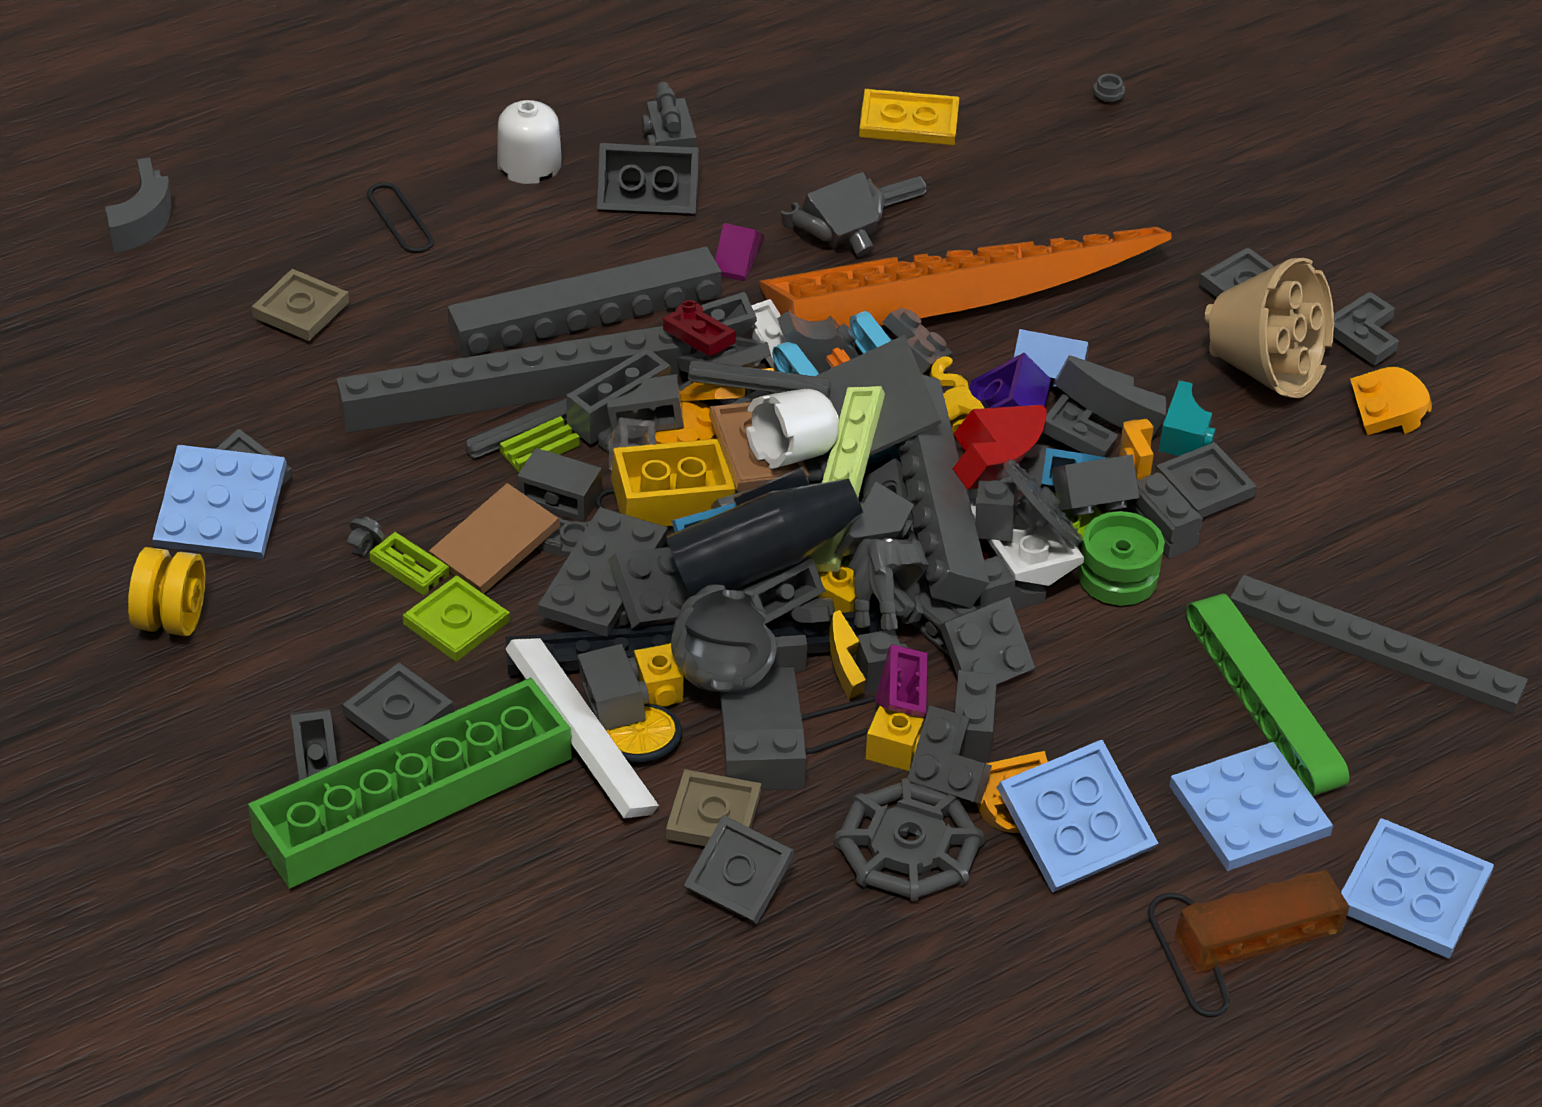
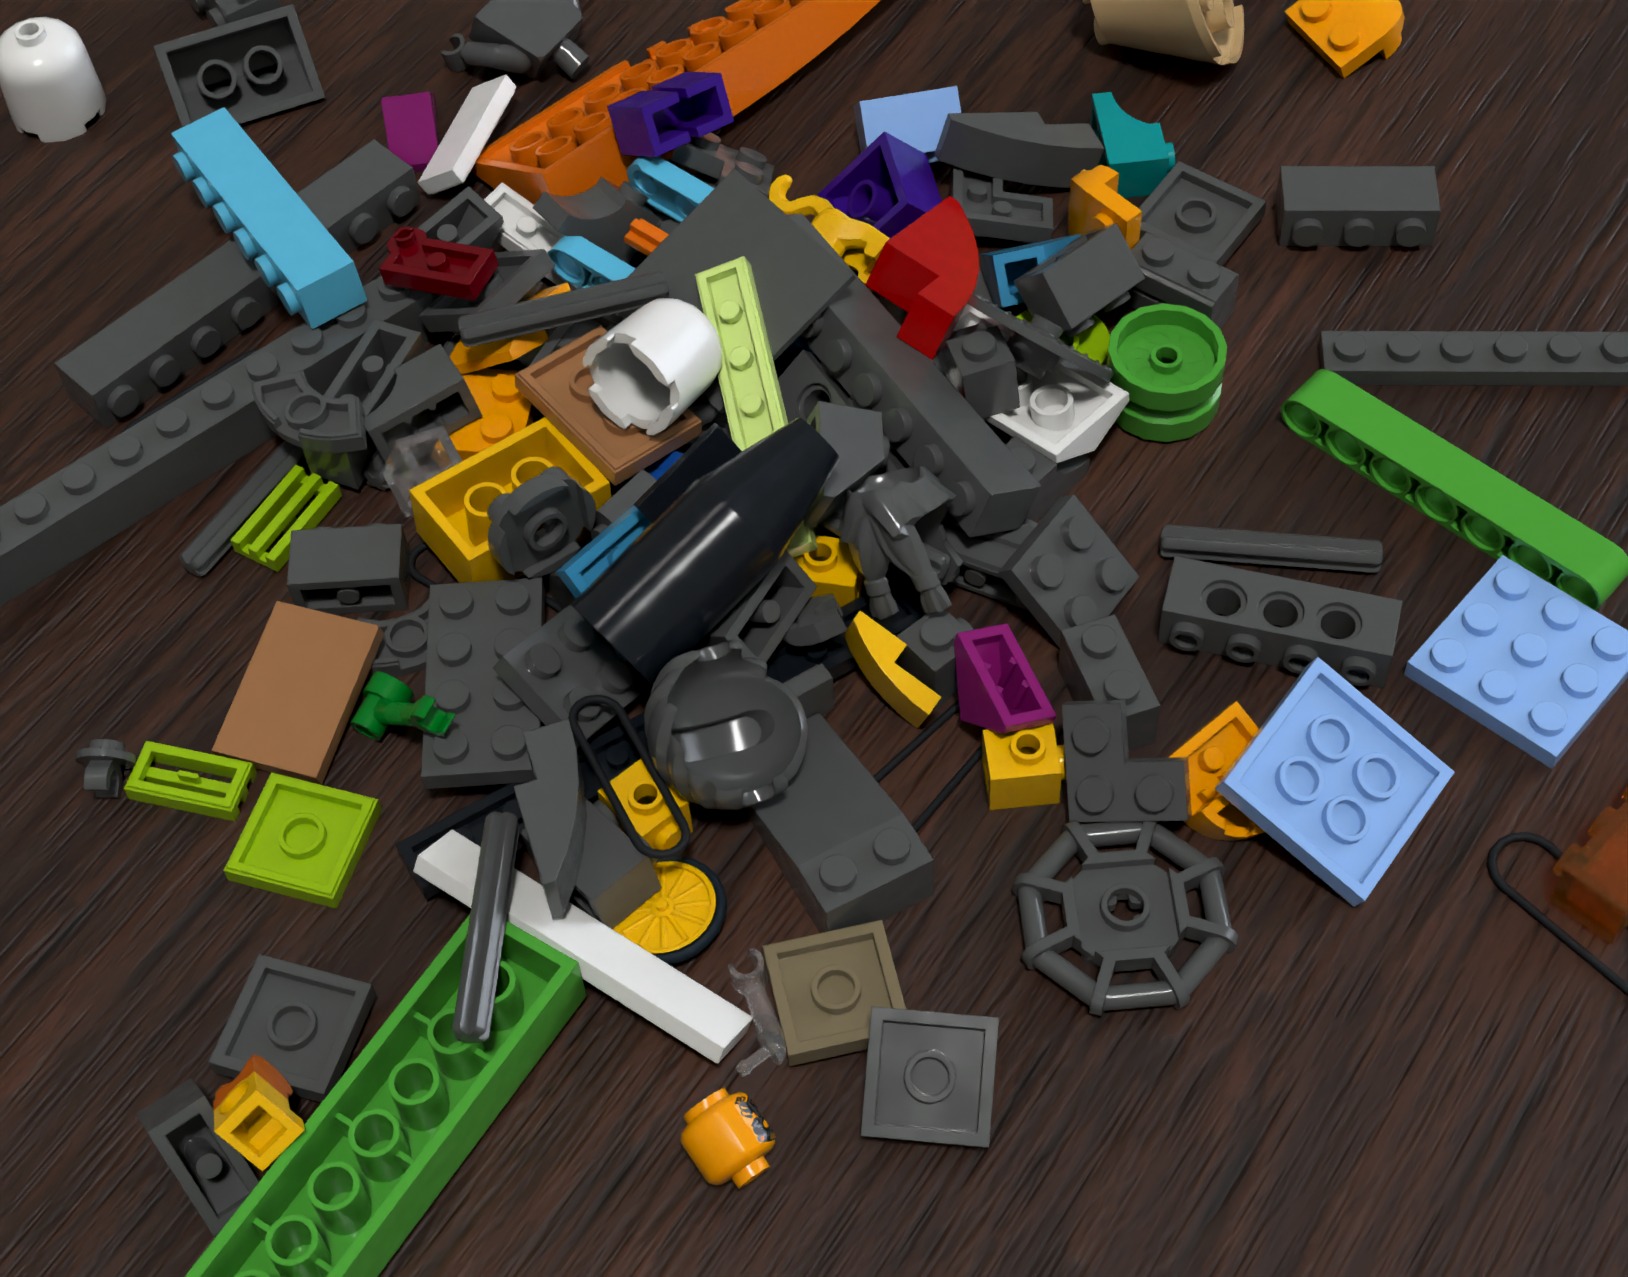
camera: 20 degrees left, 10 degrees up
(354, 731) = (256, 1113): none -> yellow leg
(528, 687) = (486, 928): none -> dark grey axle
(543, 563) = (389, 704): none -> green brick
(577, 387) = (309, 418): none -> dark grey tile
(600, 645) = (554, 810): none -> dark grey slope
(607, 855) = (728, 1138): none -> light orange head
(612, 267) = (267, 219): none -> medium azure brick
(638, 646) = (607, 787): none -> black piece
(660, 815) = (762, 1012): none -> clear piece
(675, 476) = (546, 499): none -> dark grey plate
(769, 266) = (467, 135): none -> white tile
(902, 290) = (682, 106): none -> dark purple piece
(1092, 713) = (1303, 609): none -> dark grey brick
(1129, 684) = (1271, 548): none -> dark grey axle
(1315, 510) = (1357, 206): none -> dark grey brick

